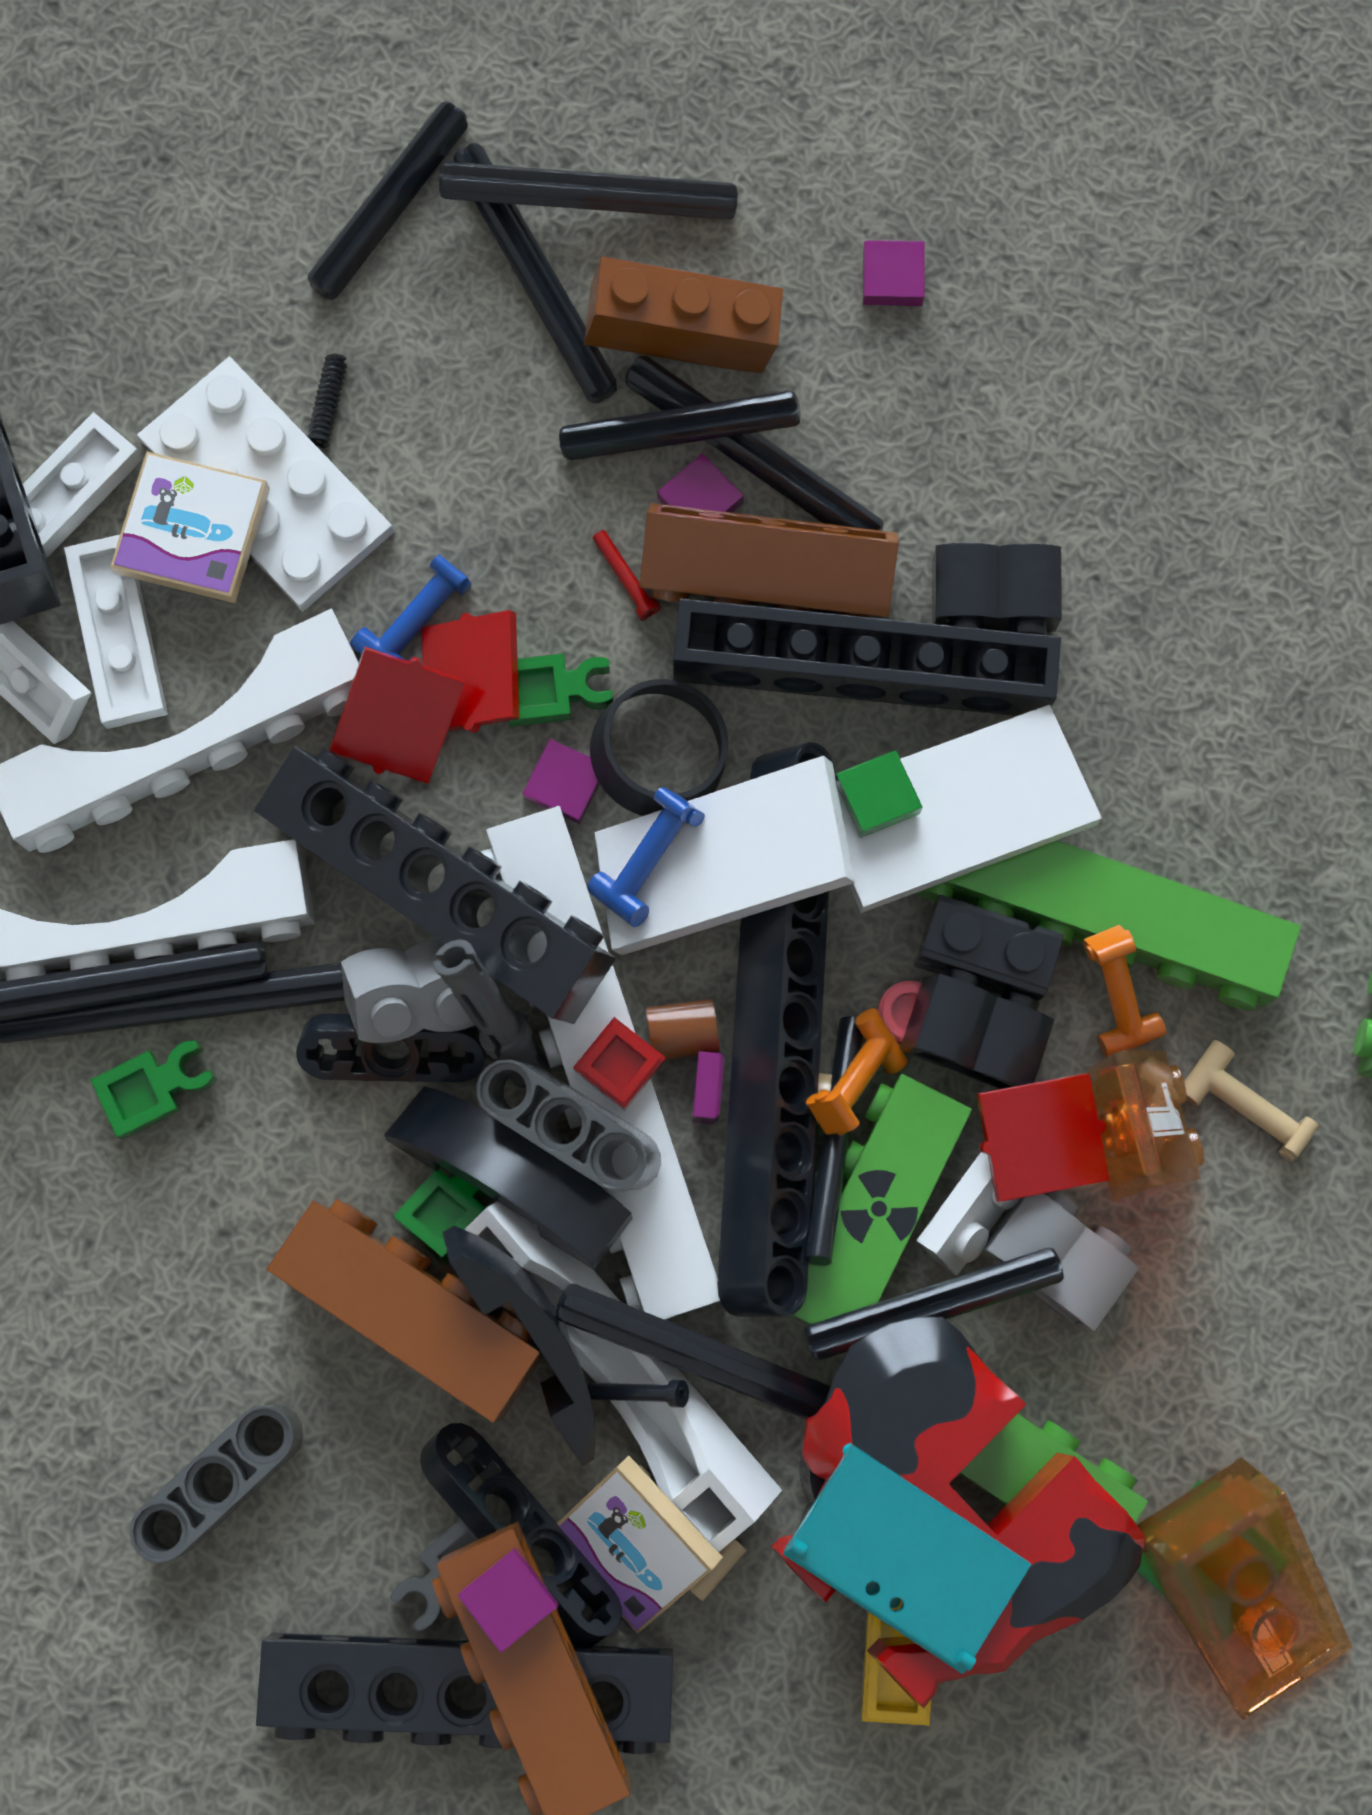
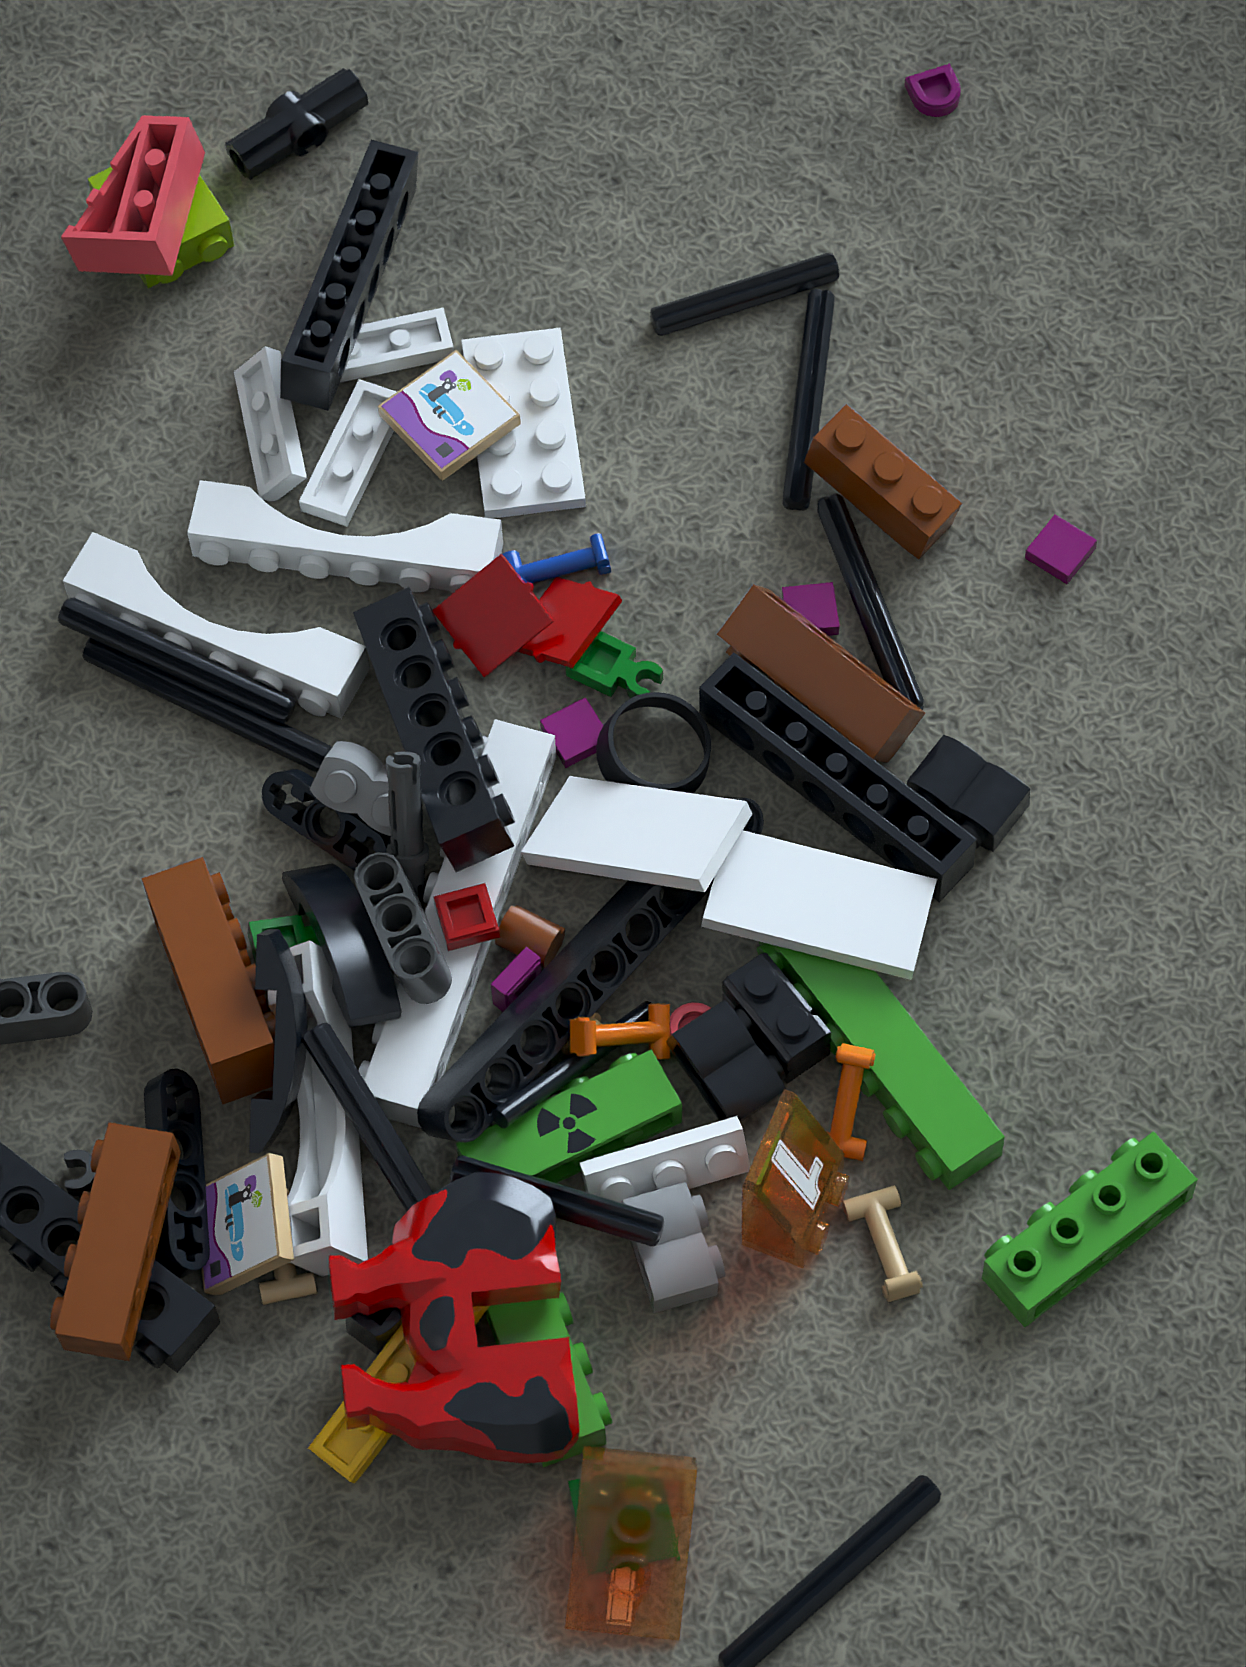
camera: 40 degrees right, 15 degrees down
(144, 1091) = (150, 743): green plate -> none
(327, 399) = (604, 395): black piece -> none
(508, 1599) = (136, 1168): magenta tile -> none
(587, 190) = (884, 367): black axle -> none
(621, 893) = (553, 816): blue piece -> none
(645, 606) = (718, 654): red piece -> none
(674, 1393) = (342, 1140): black piece -> none
(680, 425) = (827, 552): black axle -> none
(878, 793) = (768, 853): green tile -> none
(892, 1542) = (417, 1328): teal door -> none
(1042, 1137) = (710, 1148): red piece -> none

